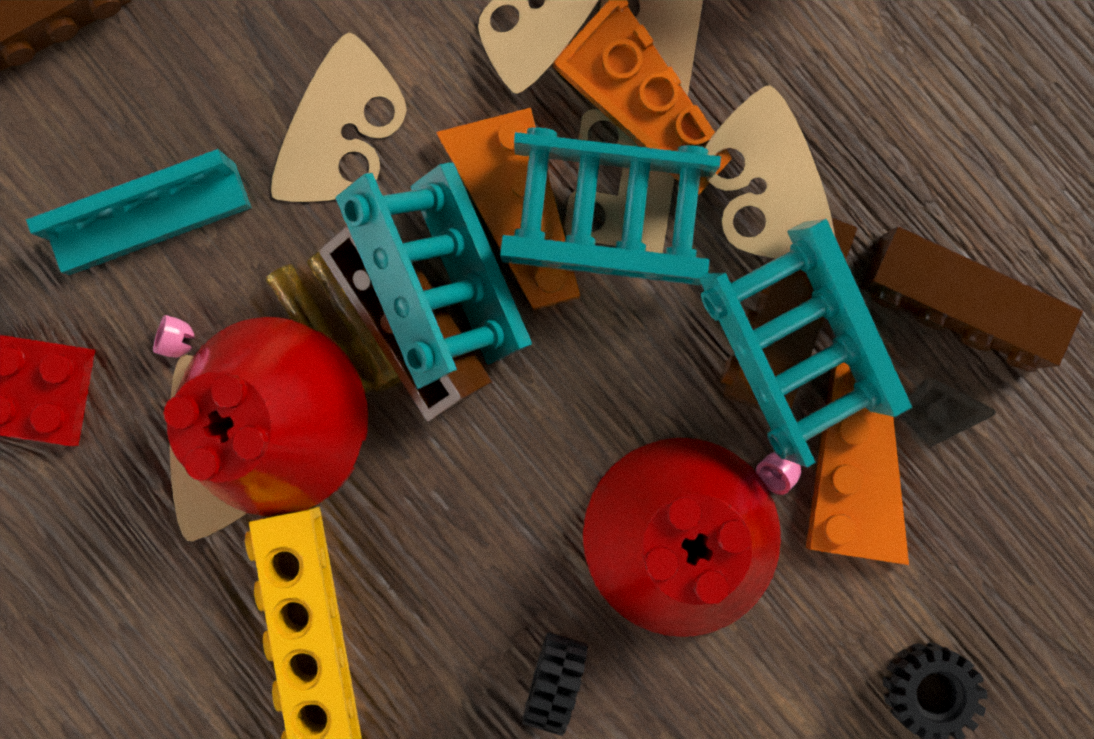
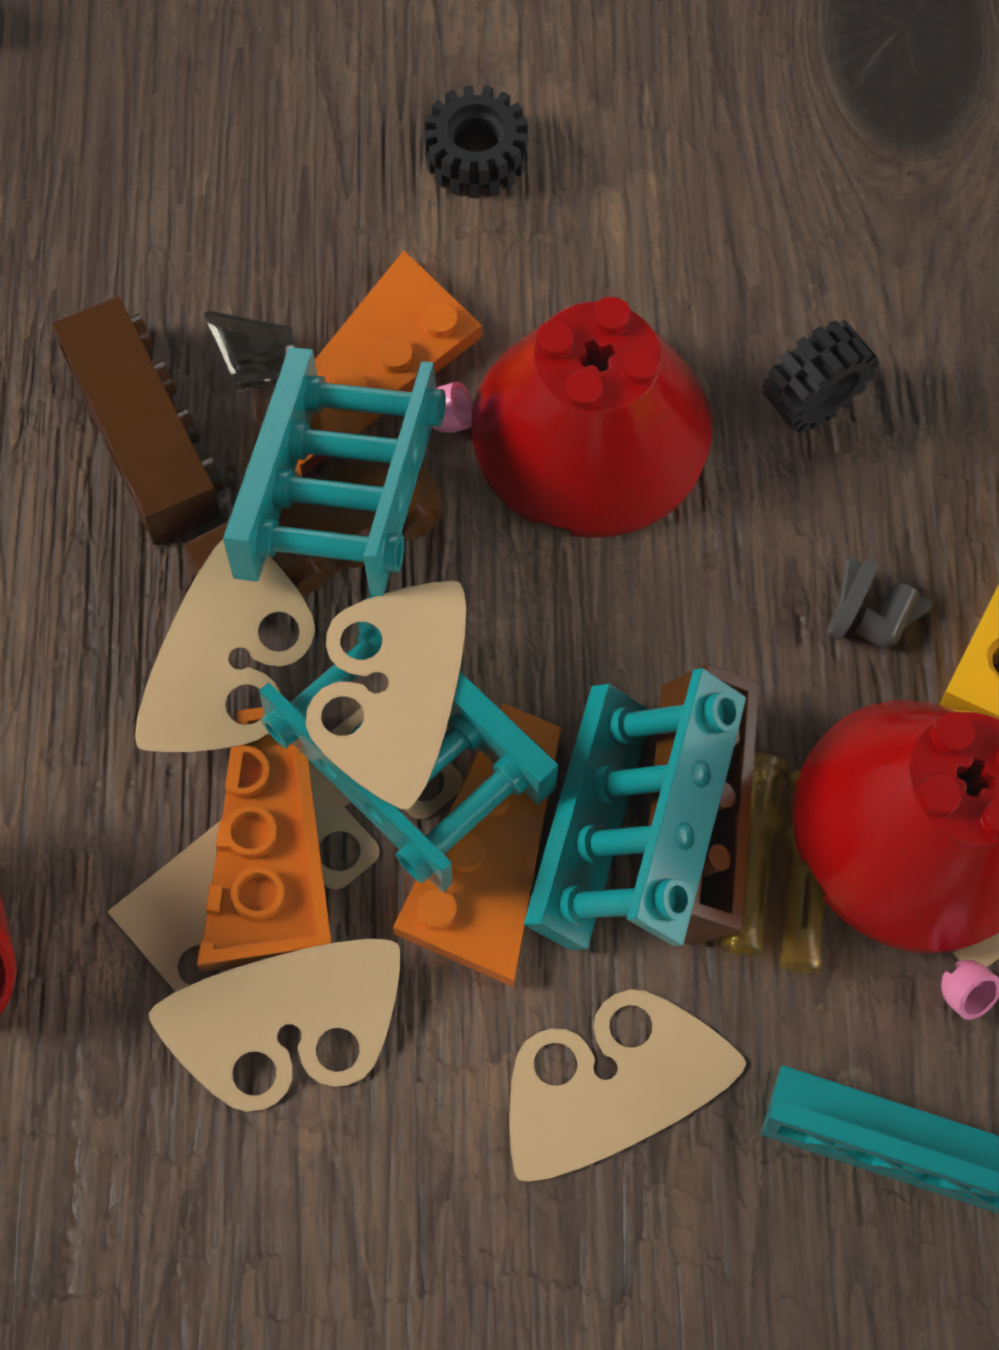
camera: 140 degrees left, 20 degrees down
(416, 529) = (883, 630): none -> dark grey piece
(639, 255) = (407, 721): none -> tan piece

